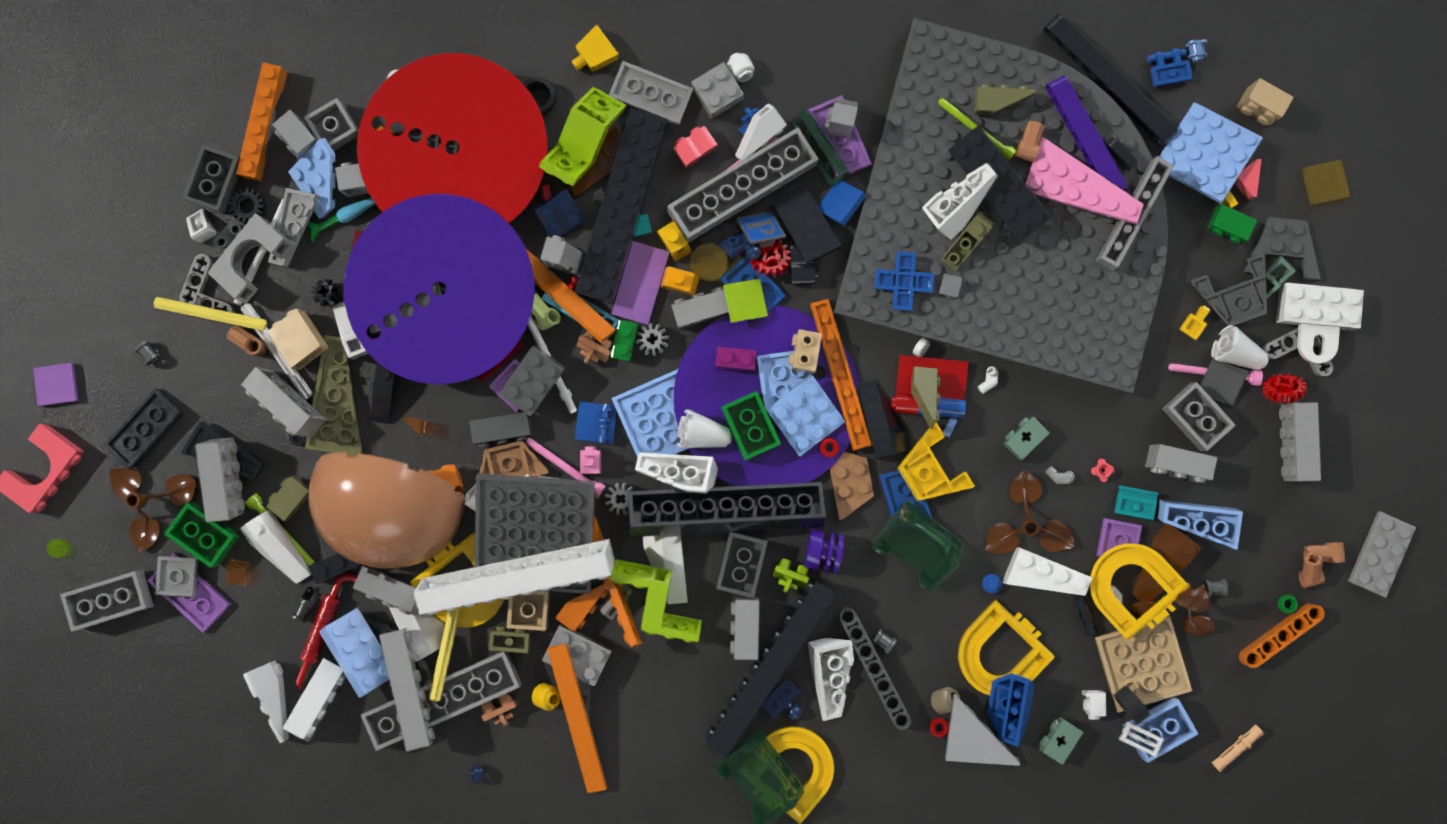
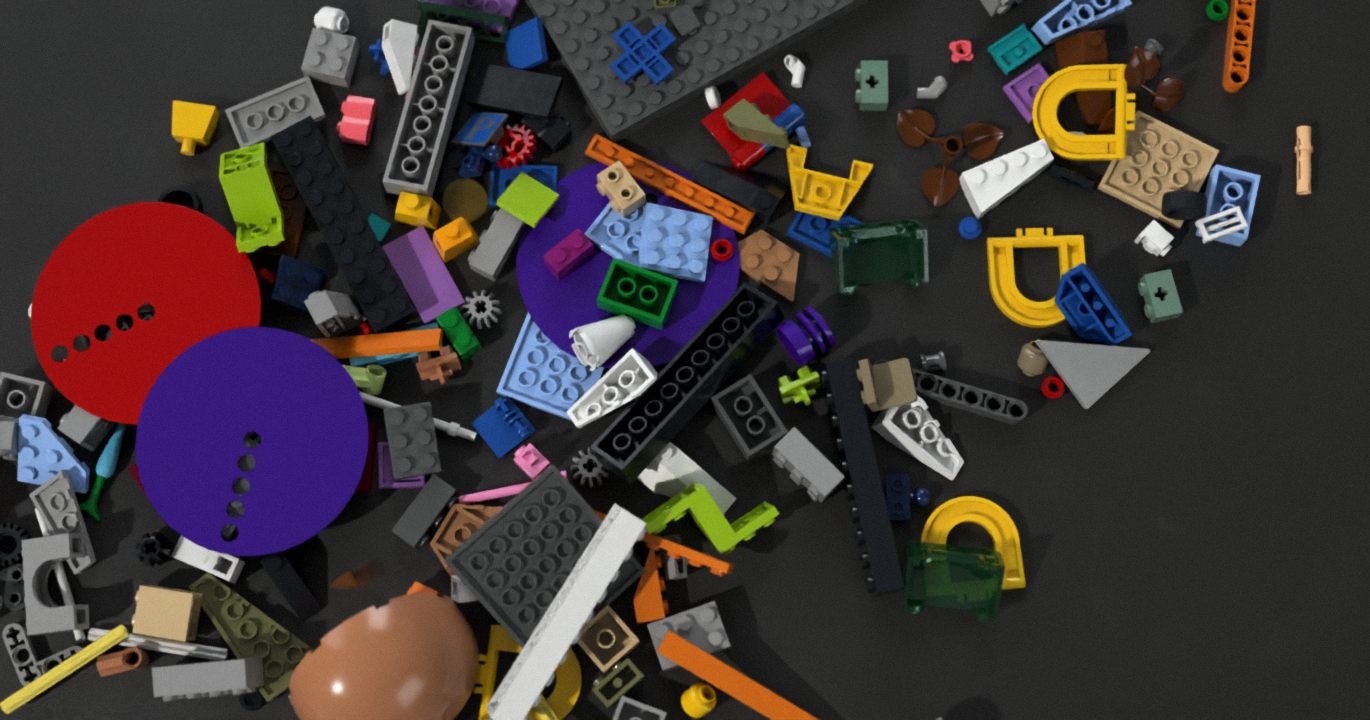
camera: 45 degrees left, 10 degrees down
(840, 630) = (886, 384): none -> dark tan bracket

